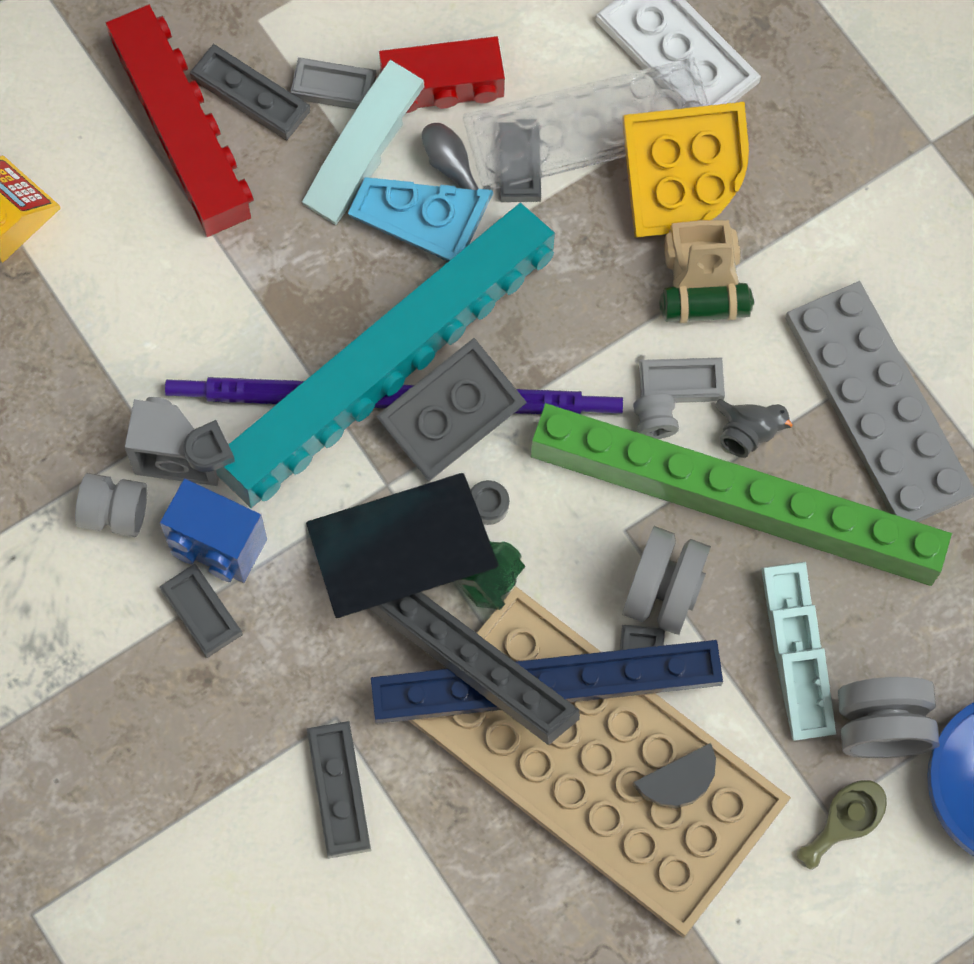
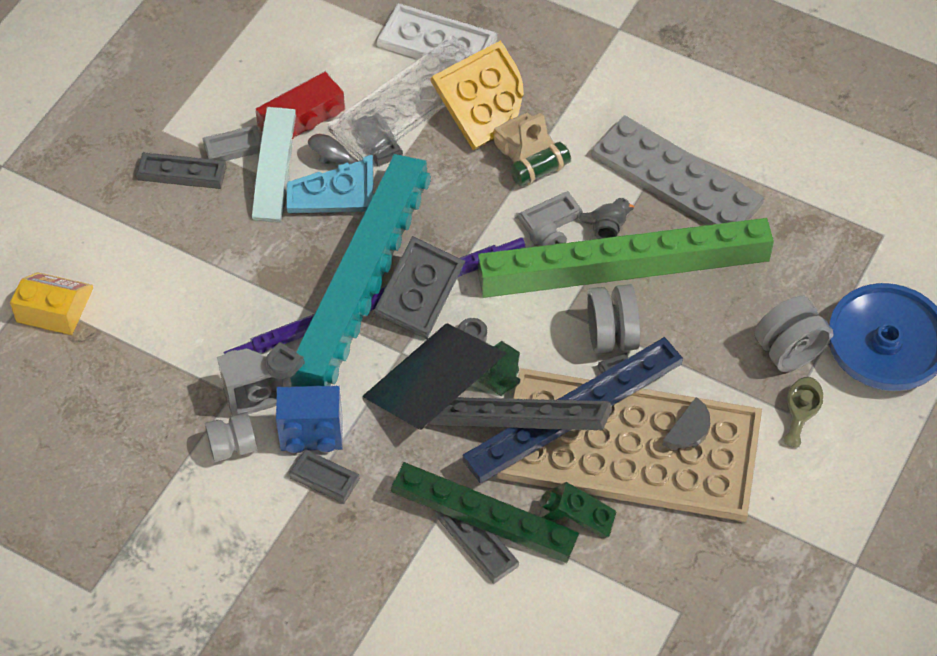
camera: 25 degrees left, 15 degrees down
(179, 121) = (146, 202): red brick -> none
(363, 763) = (485, 512): none -> dark green plate
(479, 817) = (579, 507): none -> dark green bracket
(798, 651) = (712, 327): light aqua slope -> none

